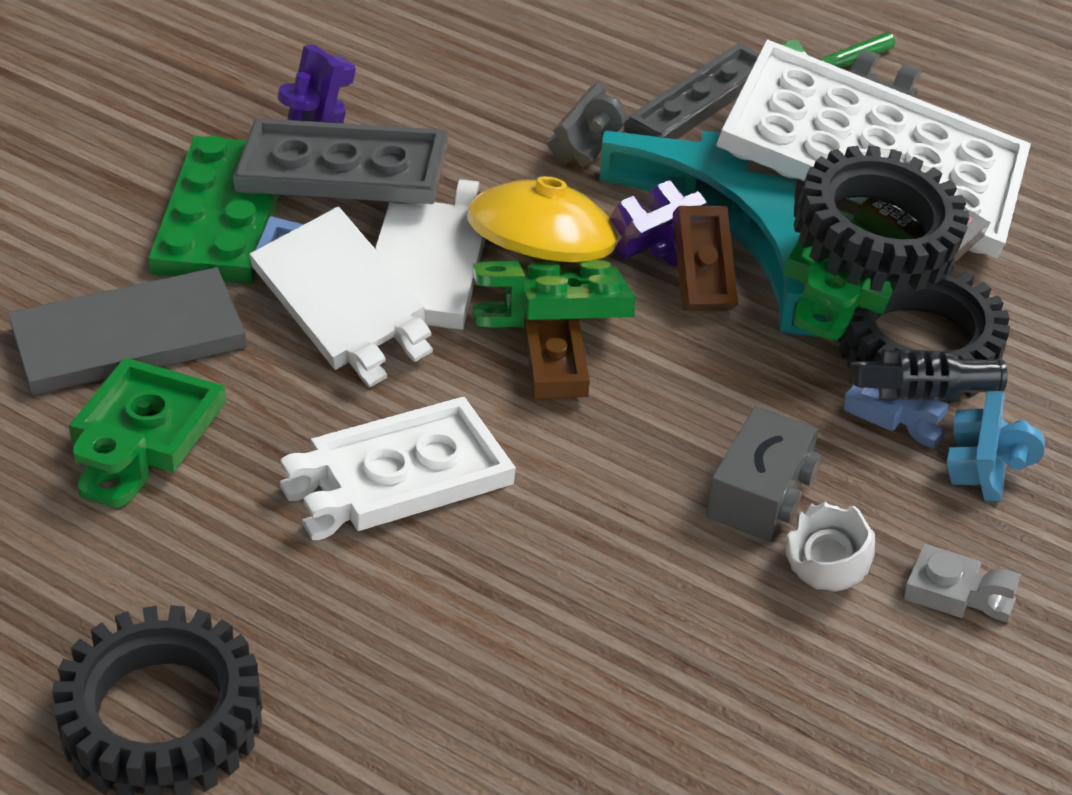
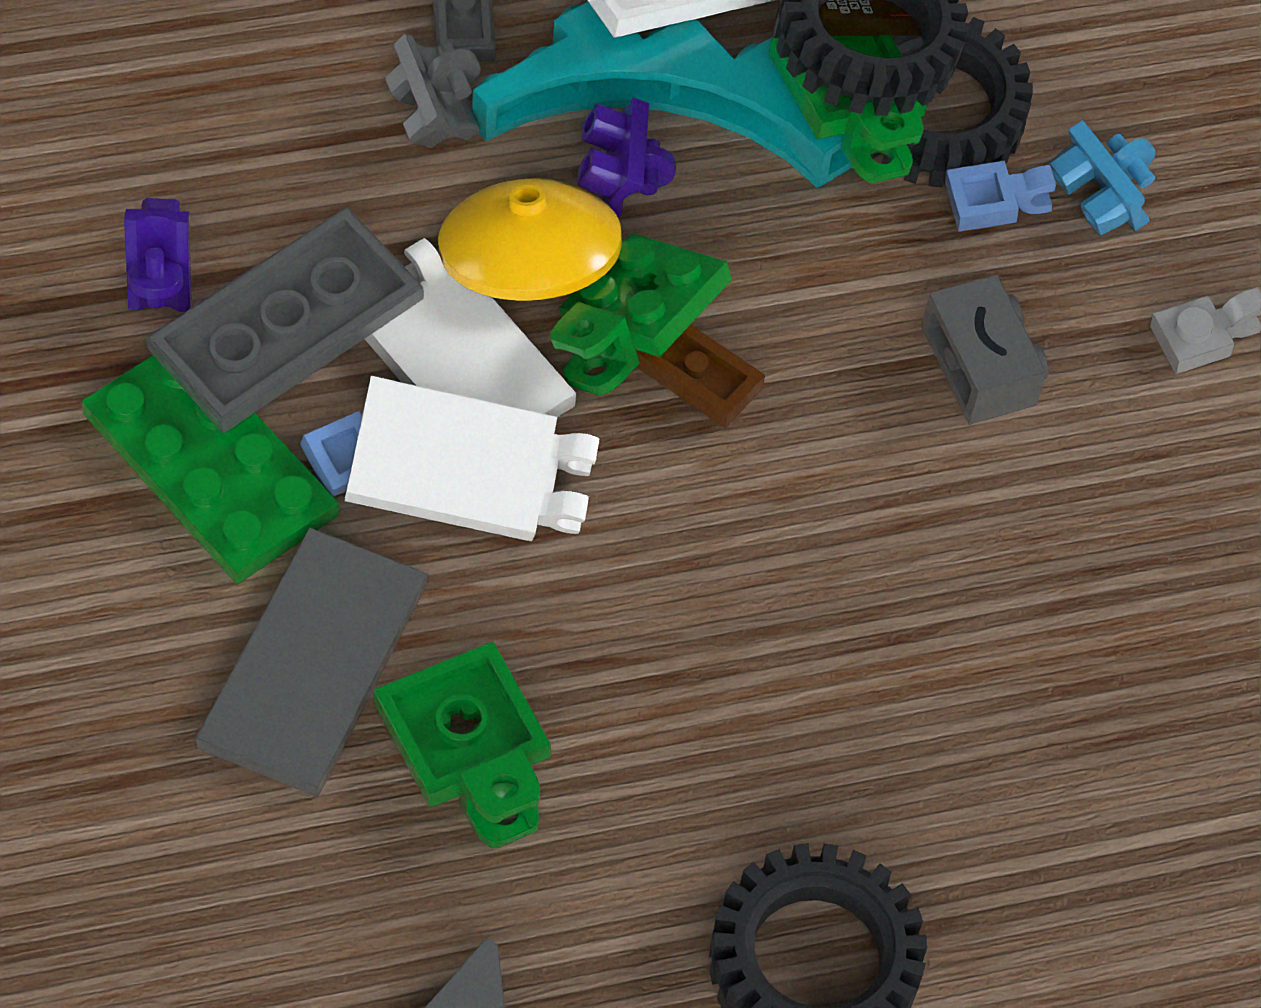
camera: 50 degrees left, 15 degrees up
(395, 468) = (712, 587): white tile -> none
(705, 258) = (709, 165): reddish brown plate -> none
(830, 547) = (1106, 375): white hair -> none
(927, 375) = (1017, 152): black hinge -> none

